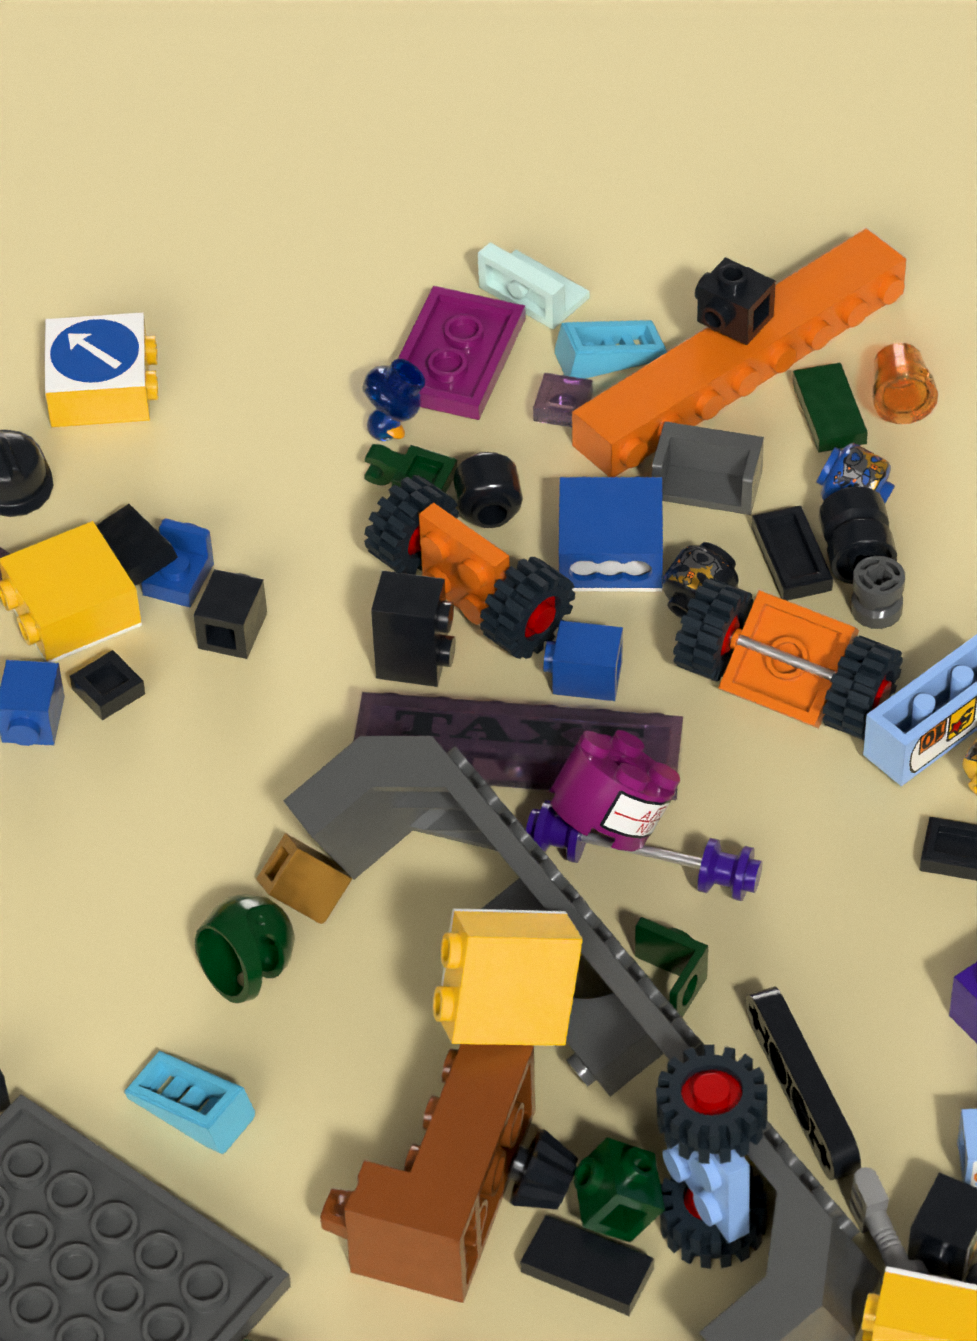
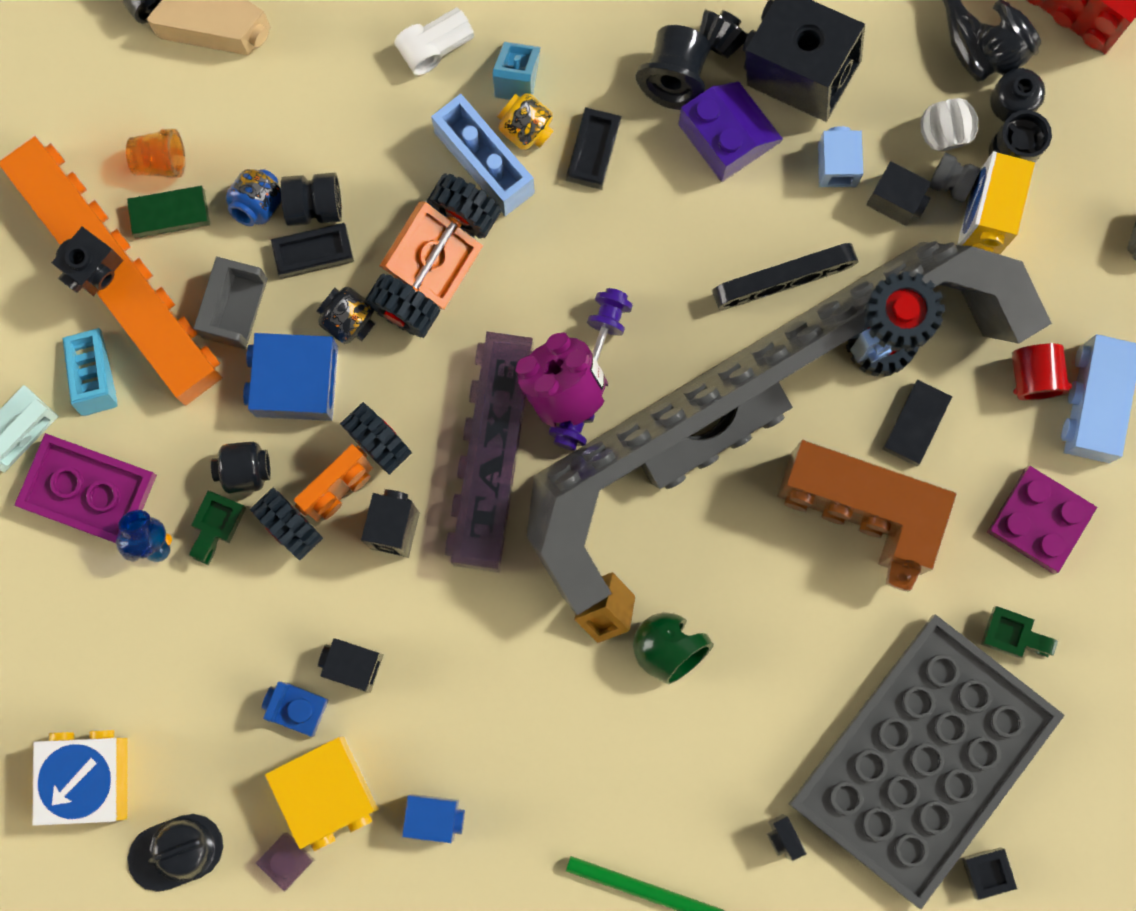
camera: 90 degrees left, 30 degrees up
(107, 685) = (414, 759): black plate -> none
(136, 544) = (276, 744): black tile -> none
(217, 1122) = (807, 682): medium azure slope -> none
(507, 977) = (768, 449): yellow piece -> none
(541, 1172) = (860, 442): black piece -> none
(559, 397) = (147, 408): plate -> none
(585, 660) = (415, 401): blue brick -> none
(618, 1189) = (875, 396): dark green brick -> none
(676, 953) = (678, 348): dark green bracket -> none
(869, 1209) = (932, 226): light grey hinge -> none
(877, 592) = (363, 199): dark grey wheel -> none

